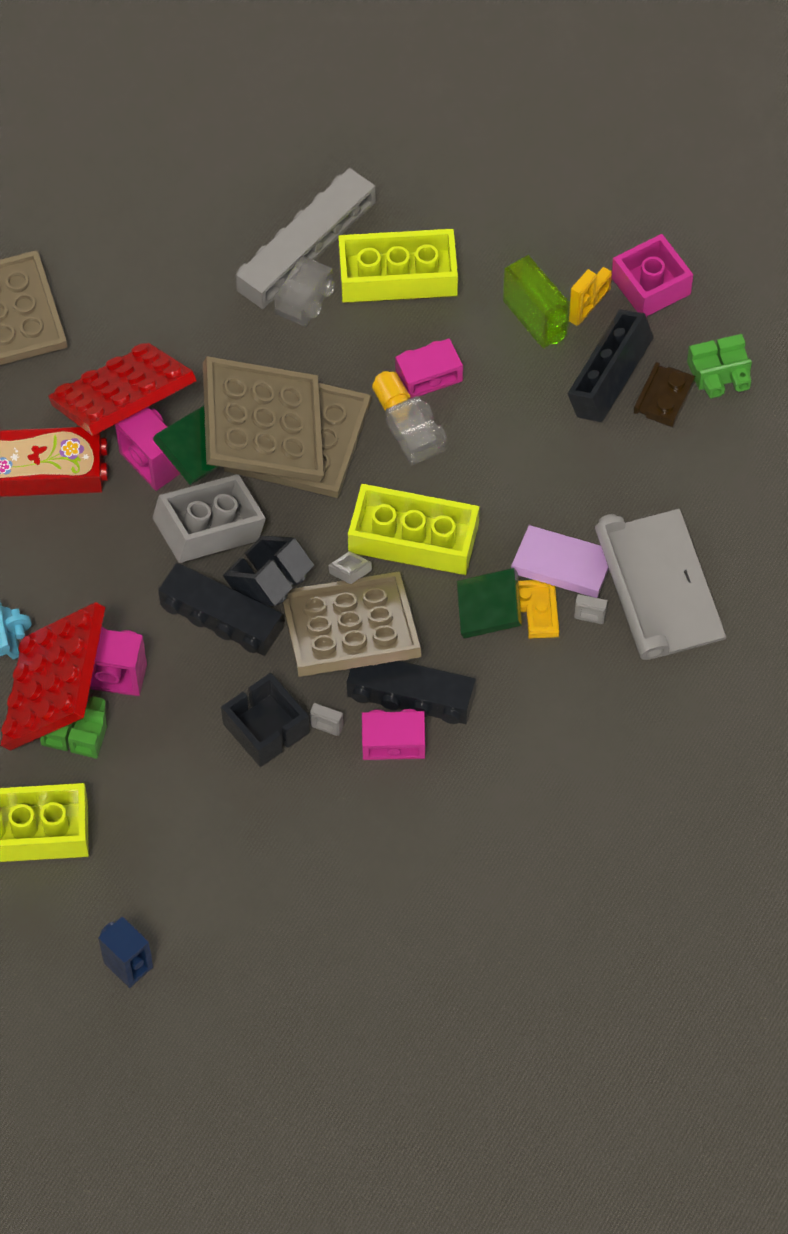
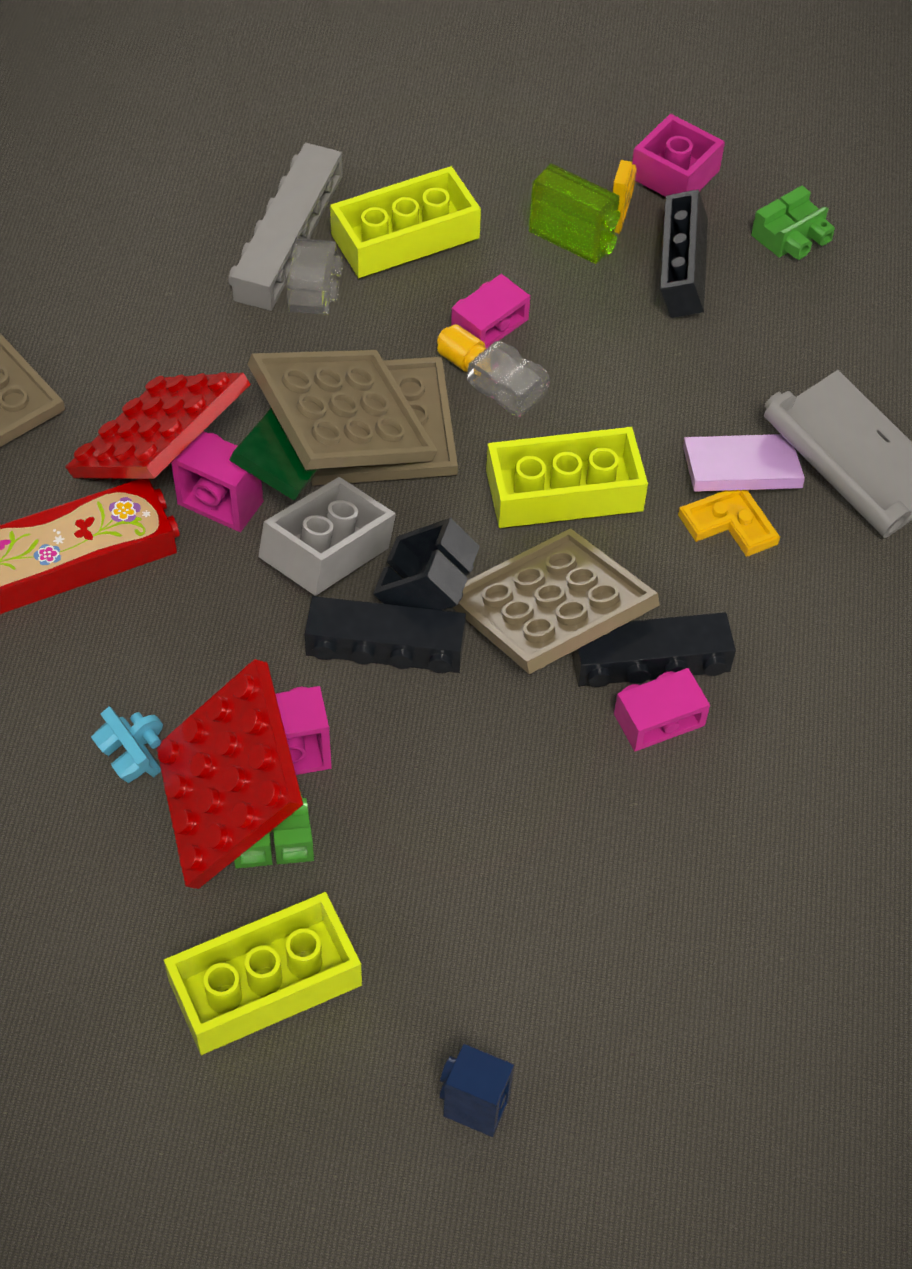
camera: 25 degrees left, 5 degrees down
(269, 723) = (510, 740): black piece -> none
(326, 719) = (574, 717): light grey tile -> none
(350, 567) = (512, 541): light grey tile -> none
(489, 603) = (689, 530): dark green tile -> none
(590, 609) = (802, 501): light grey tile -> none
(664, 394) = (749, 270): dark brown plate -> none

